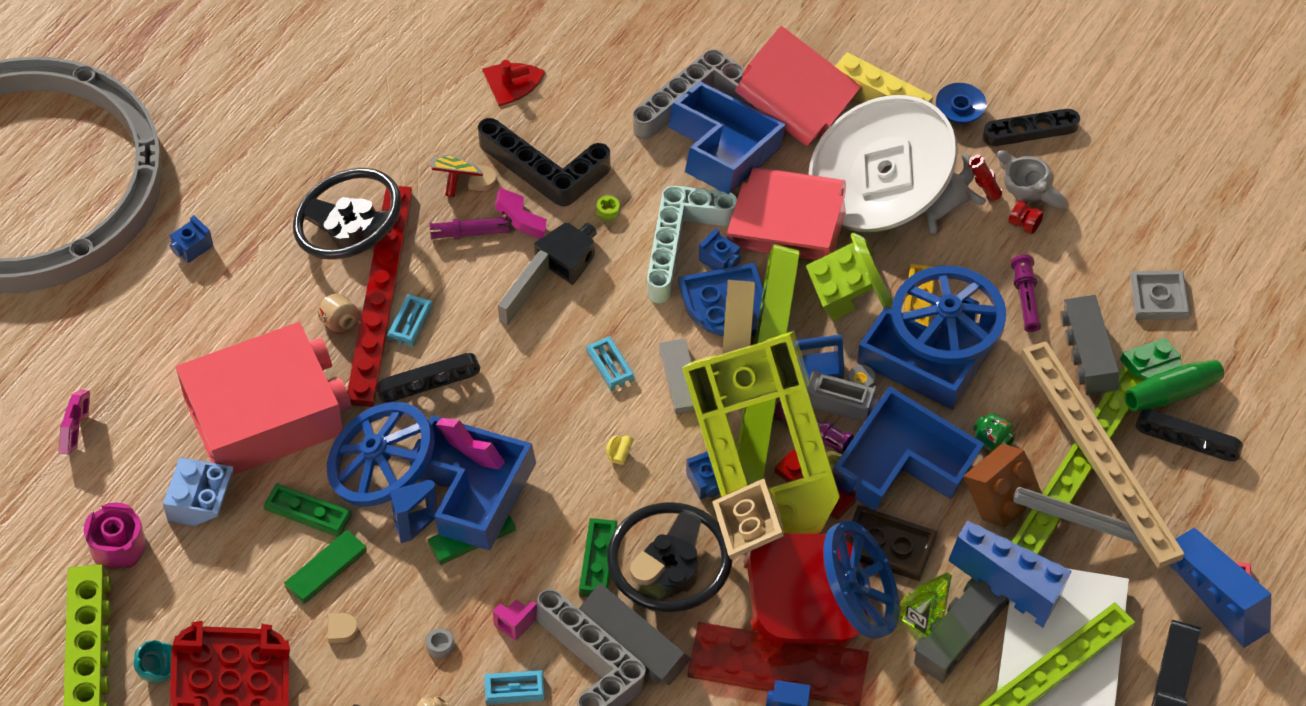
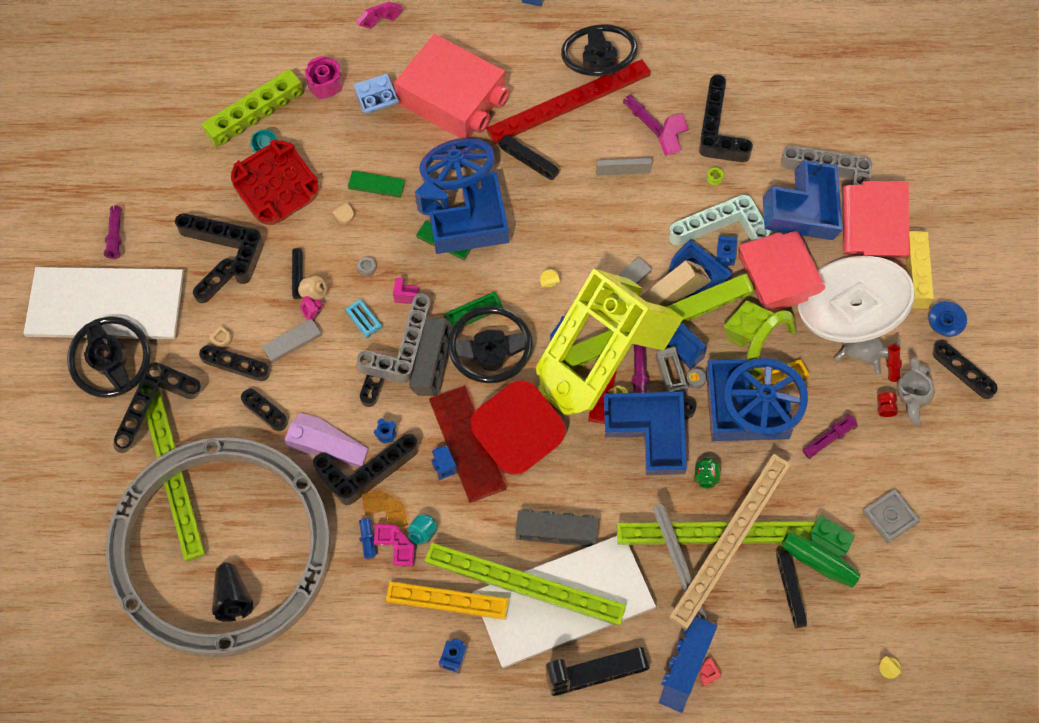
camera: 60 degrees right, 10 degrees up
(307, 510) = (405, 154): green tile -> none
(336, 312) = (537, 89): tan head -> none
(403, 336) = (563, 129): medium azure tile -> none
(452, 167) = (677, 81): shield -> none
(478, 451) = (490, 211): dark pink tile -> none
(484, 182) = (685, 102): tan tile -> none
(512, 80) = (768, 75): red shield -> none
(568, 250) = (666, 173): black torso -> none
(618, 379) = (600, 253): medium azure tile -> none
(645, 569) = (468, 335): tan tile -> none
(748, 518) = (533, 368): tan slope -> none
(851, 580) = (536, 451): blue wheel -> none
(903, 542) = (590, 457): dark brown tile -> none
(926, 604) = (551, 498): clear neon green slope -> none
(995, 481) = (666, 490): dark orange brick -> none
(1010, 570) = (603, 534): blue wedge -> none
(1090, 345) = (812, 493): dark grey brick -> none

